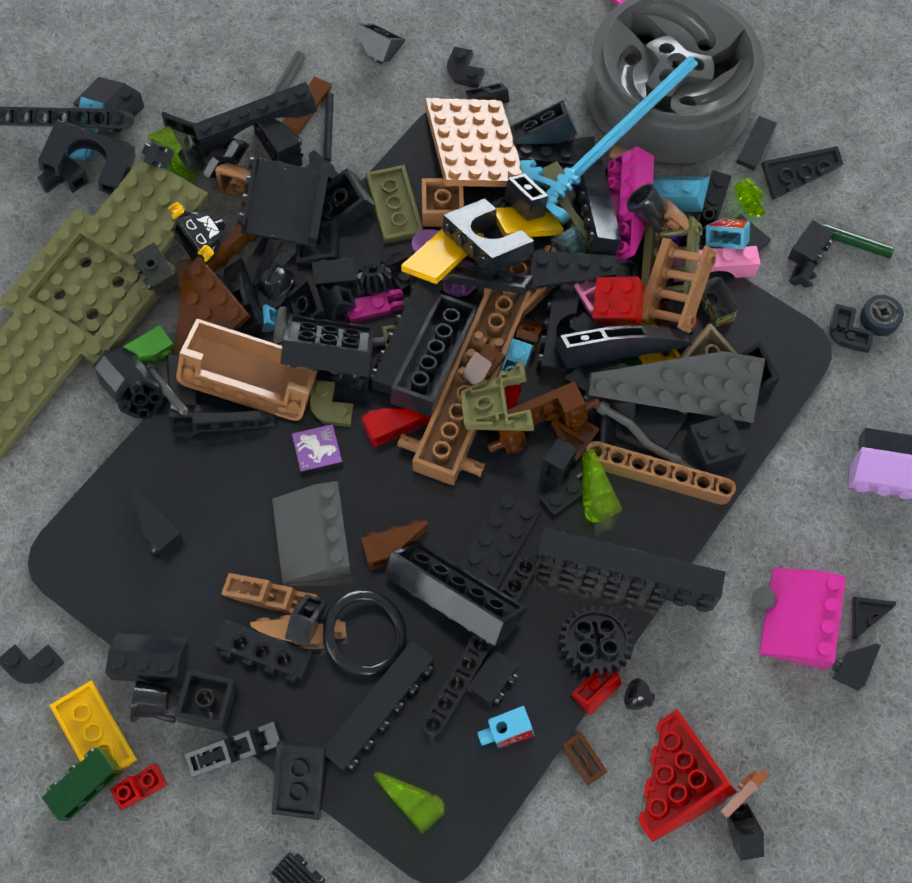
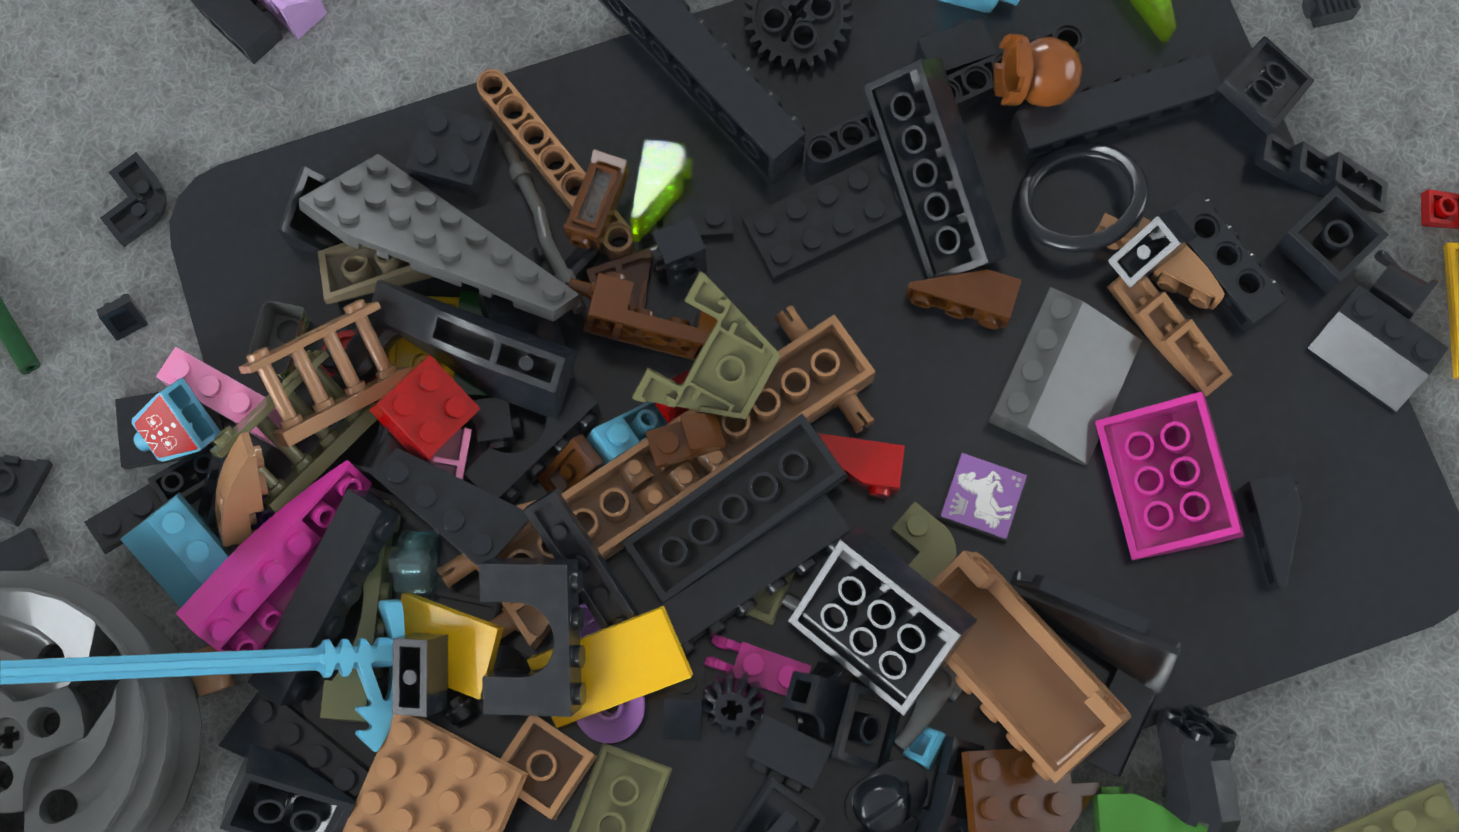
camera: 140 degrees left, 10 degrees up
(168, 392) = (1148, 783): dark grey bar -> none
(222, 514) = (1169, 477): none -> dark pink slope
(433, 677) = (1037, 71): none -> dark orange tile
(619, 453) = (596, 200): none -> reddish brown window
(648, 206) = (266, 514): black hat -> none
(750, 197) = (84, 479): clear neon green rock -> none
(811, 244) = (70, 349): black brick -> none
(872, 318) = (89, 195): wheel -> none

